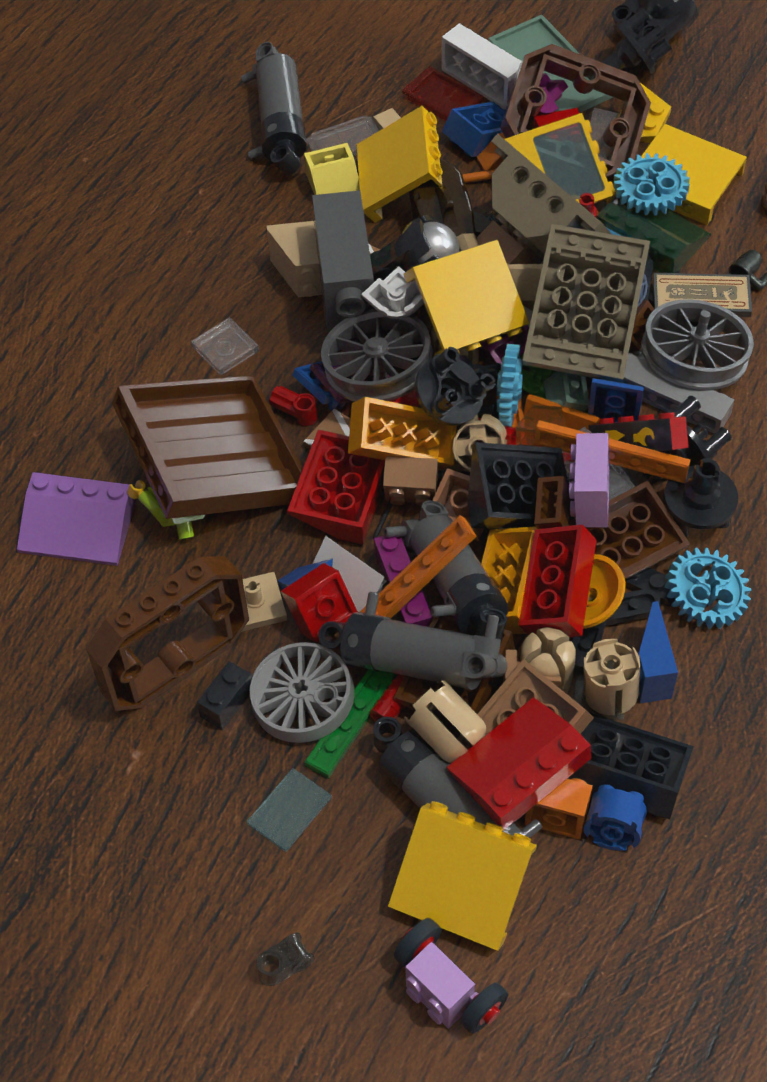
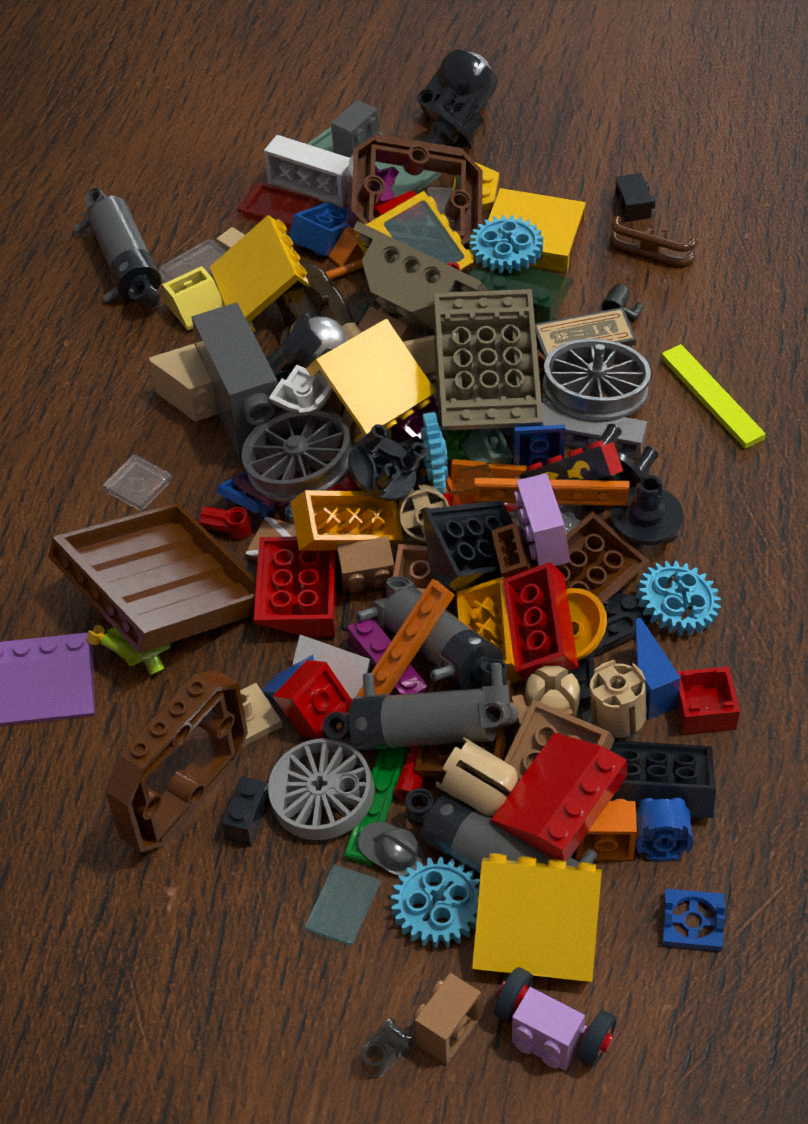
camera: 15 degrees left, 5 degrees down
(348, 948) = (447, 1018): none -> medium nougat brick
(350, 767) = (390, 847): none -> dark grey piece
(360, 814) = (415, 890): none -> medium azure gear
(538, 30) = (354, 127): none -> dark grey brick
(630, 941) = (673, 938): none -> blue piece
(701, 699) = (707, 701): none -> red container

